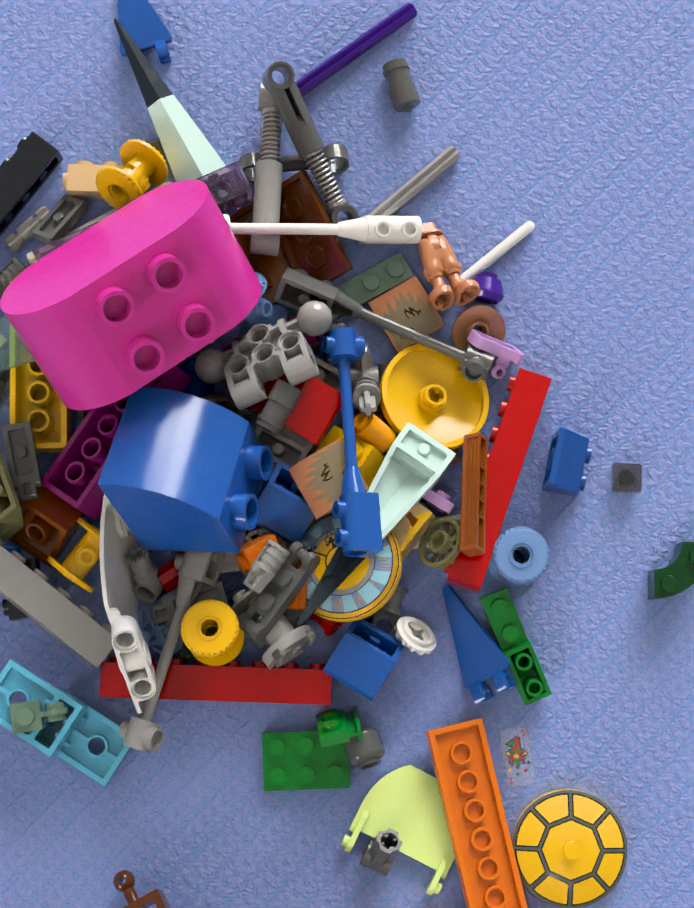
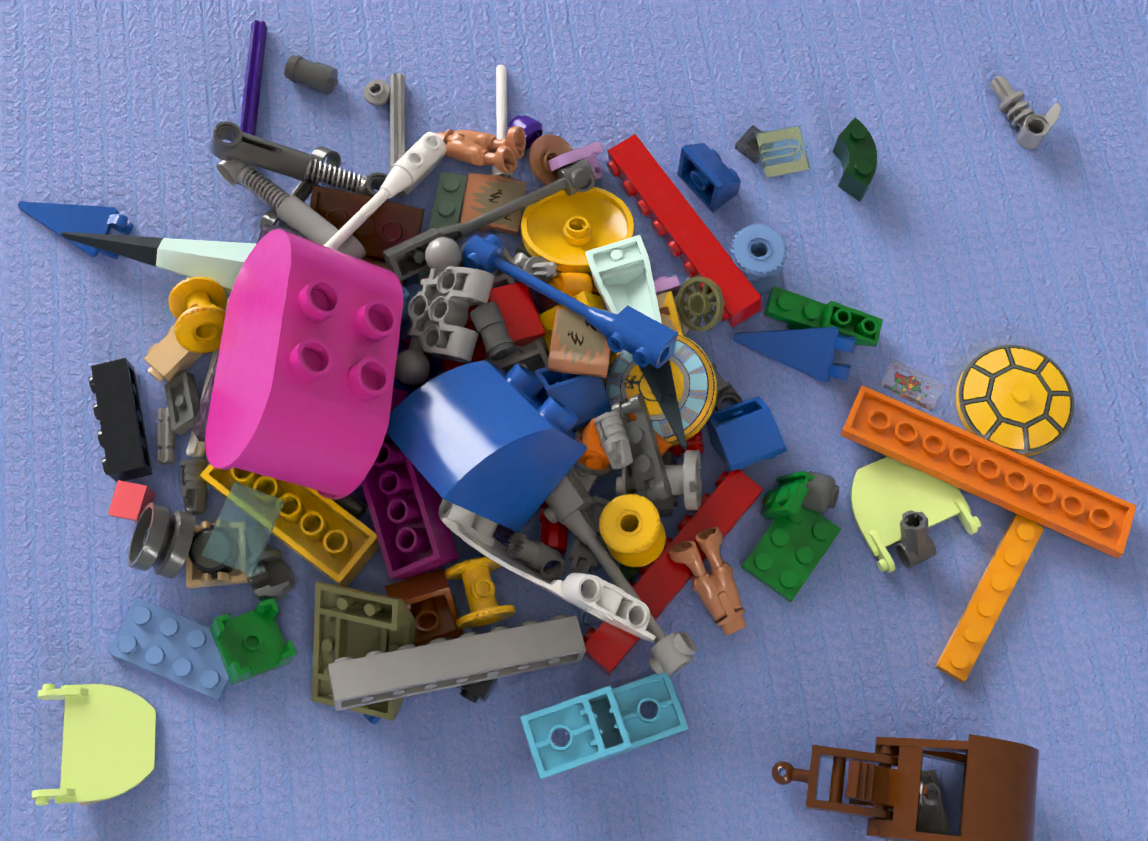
camera: 50 degrees left, 10 degrees down
(22, 459) = (356, 573): dark grey hinge -> none
(29, 715) = (582, 735): sand green plate -> none
(226, 729) = (715, 589): none -> nougat piece
(408, 628) = (756, 384): white gear -> none
(424, 154) = (379, 98): none -> light grey plate
(473, 494) = (683, 249): dark orange piece -> none
(638, 506) = (783, 151): none -> clear light blue piece

